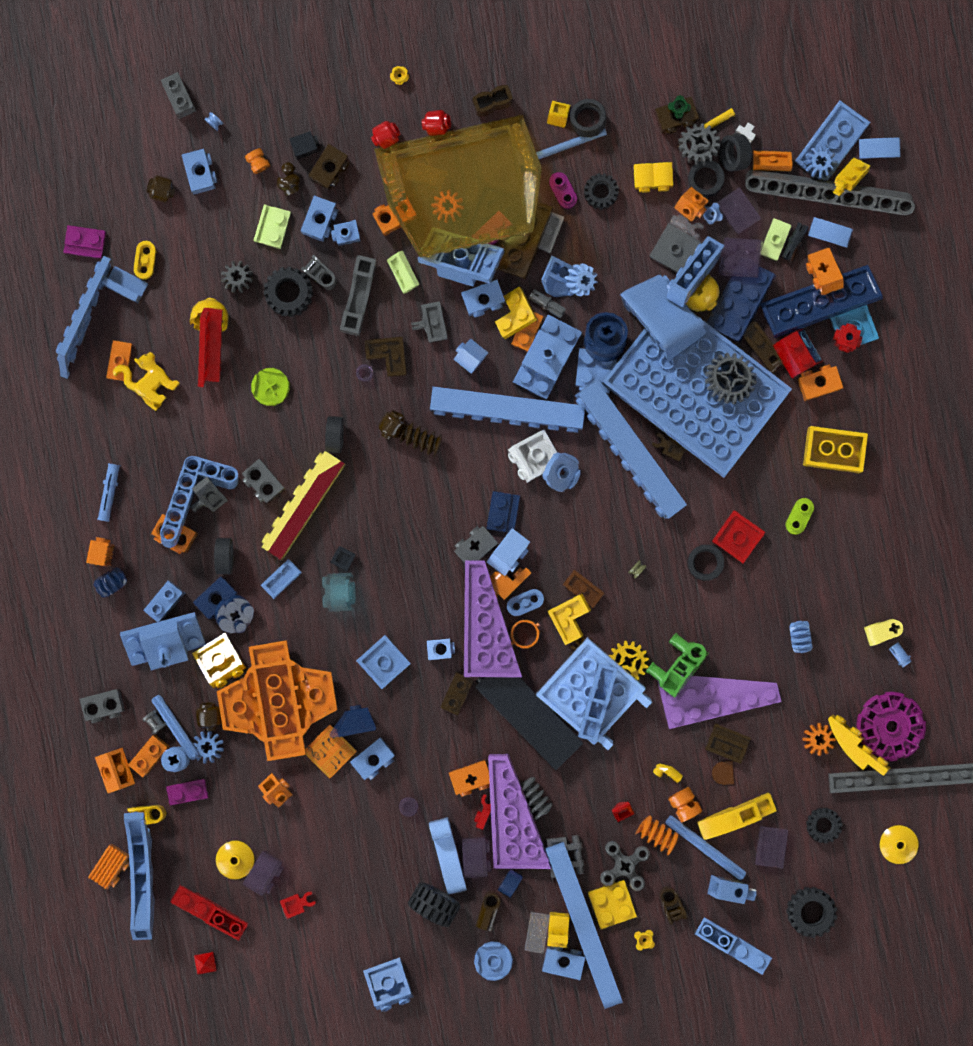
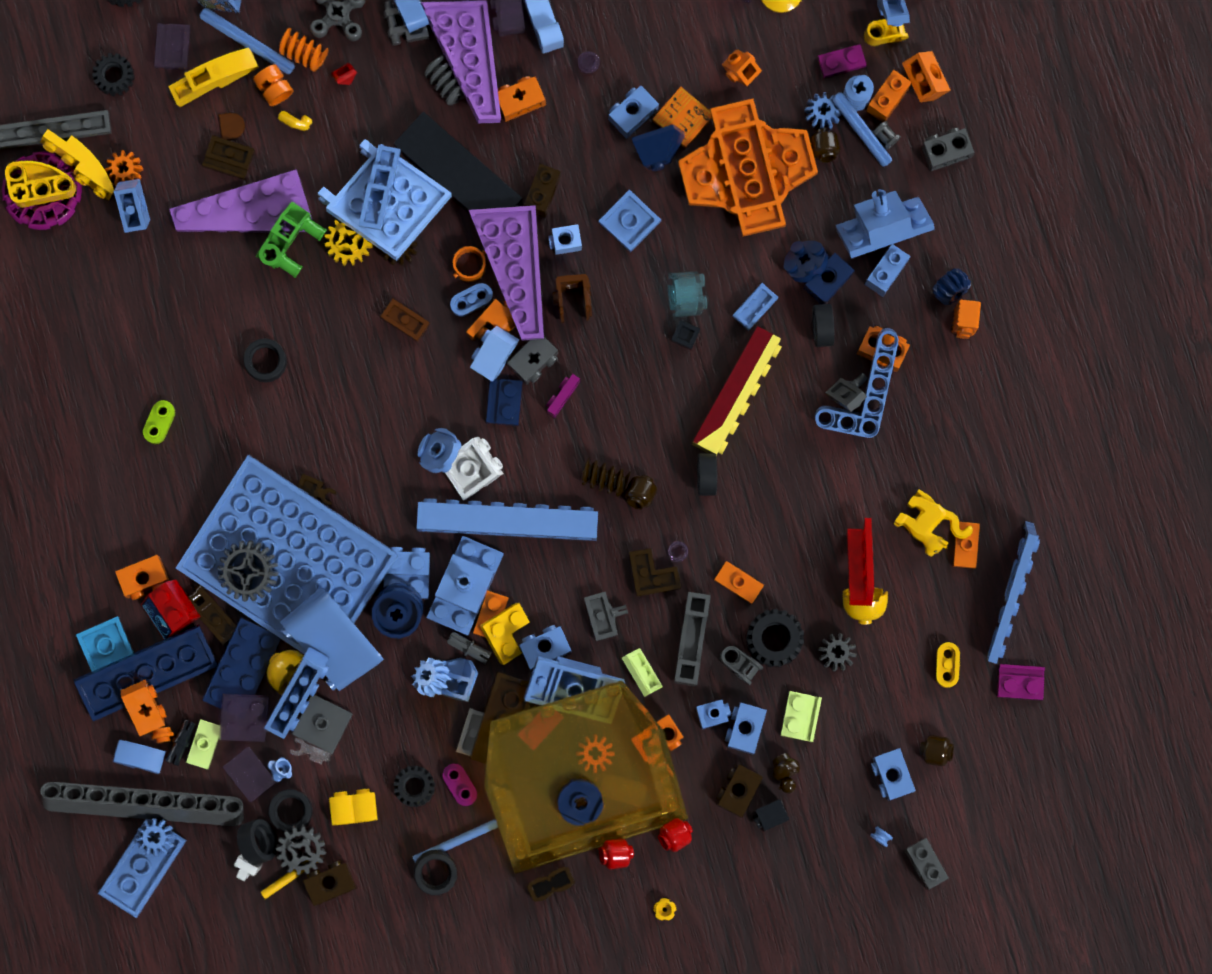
camera: 165 degrees right, 5 degrees down
(108, 492) = (964, 389): medium blue pin -> none
(125, 284) = (968, 634): medium blue panel -> none
(219, 661) = (818, 207): plate -> none
(257, 161) = (825, 792): orange wheel -> none
(266, 478) = (780, 420): dark grey brick -> none
(270, 387) = (787, 527): lime tile -> none
(315, 343) = (739, 582): none -> orange plate
(437, 609) = (573, 283): none -> reddish brown piece
(458, 507) = (556, 403): none -> magenta plate
(467, 174) = (584, 814): none -> dark blue plate
(470, 355) = (555, 578): medium blue brick -> none
(481, 817) = (504, 55): red plate -> none
(558, 114) = (471, 877): yellow slope -> none
(565, 615) = (424, 285): yellow plate -> none
(630, 449) = (360, 481): medium blue brick -> none
(637, 569) = (344, 346): olive bush -> none
(674, 106) = (333, 890): dark green plate -> none
(691, 204) = (305, 776): orange brick -> none
(738, 536) = (229, 392): red plate -> none
(772, 160) = (212, 837): orange plate -> none
(801, 636) = (150, 281): medium blue gear -> none
(809, 248) = (162, 735): none -> orange plate
(813, 704) = (132, 205): none -> medium blue brick
(835, 449) = (121, 499): yellow brick -> none
(844, 344) = (118, 634): red brick -> none
(850, 176) = (118, 823): yellow plate -> none
(879, 148) = (85, 862): medium blue slope -> none
(880, 632) = (57, 296): light yellow piece -> none
(889, 842) = (34, 67): yellow dish -> none
(899, 733) = (34, 177): none -> yellow beam
(900, 654) = (34, 271): medium blue pin -> none

